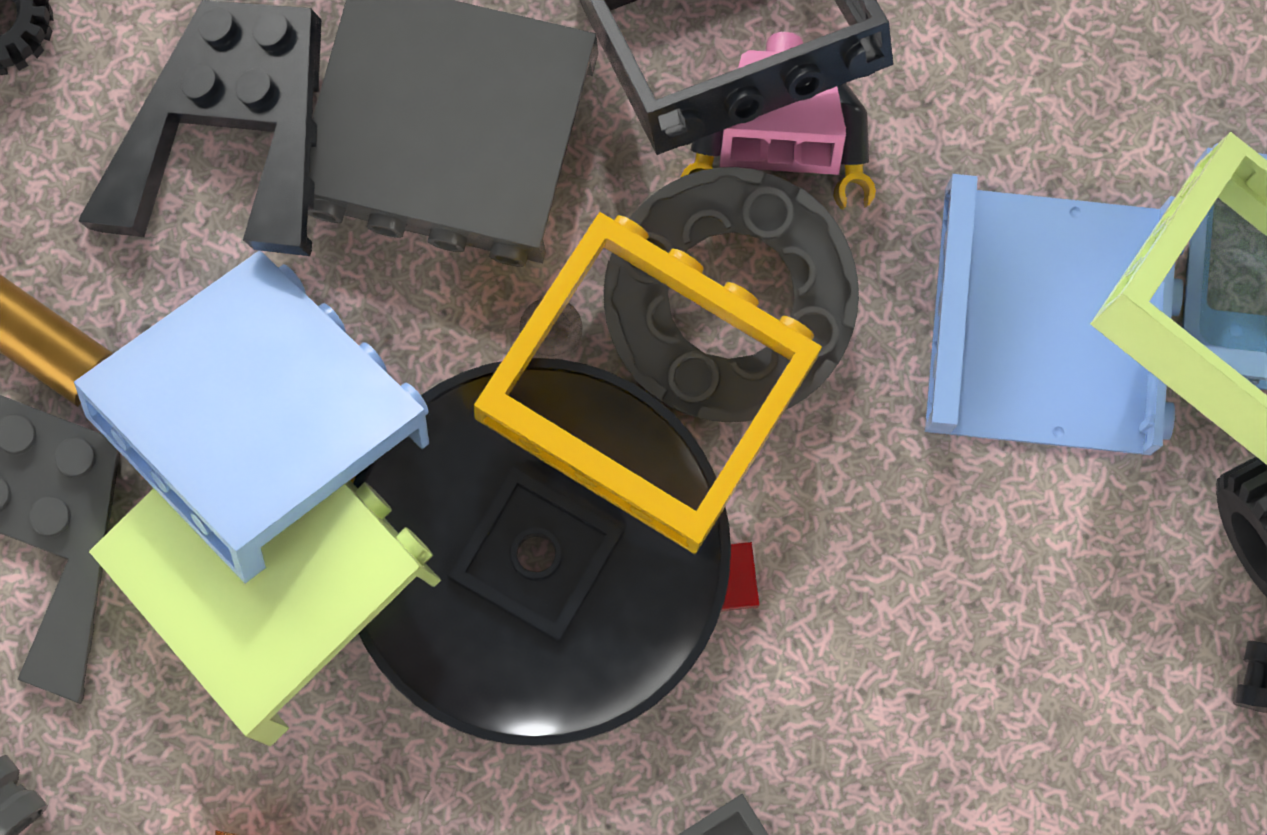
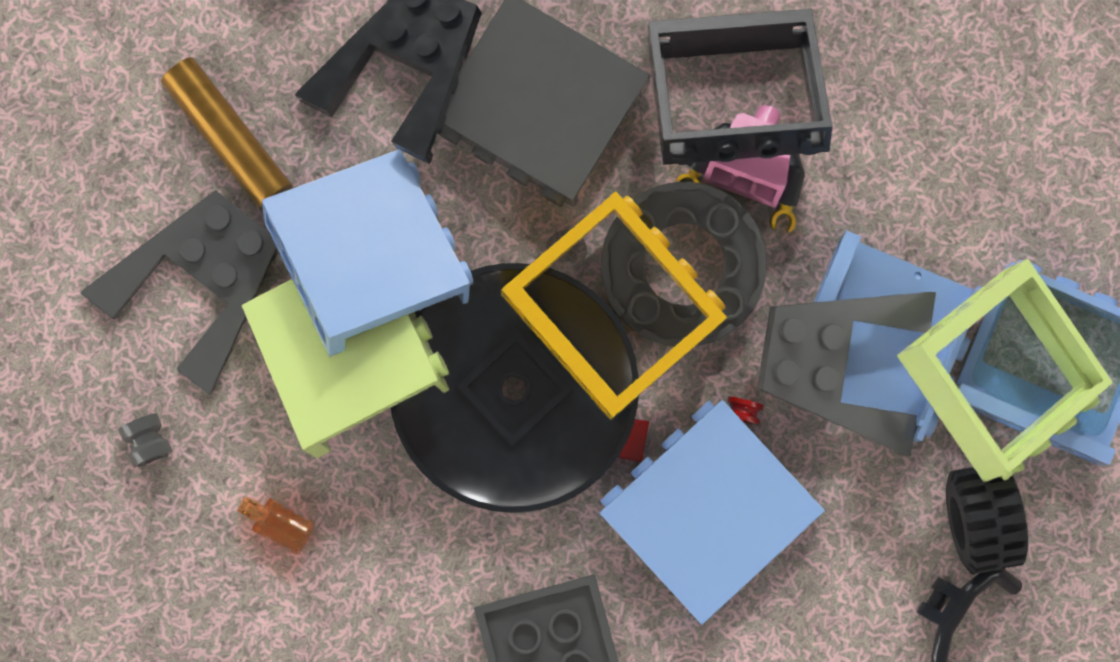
camera: 20 degrees right, 5 degrees up
(884, 644) = (710, 510): none -> light blue panel
(886, 483) = (746, 409): none -> red bush
(958, 371) = (809, 355): none -> dark grey wing

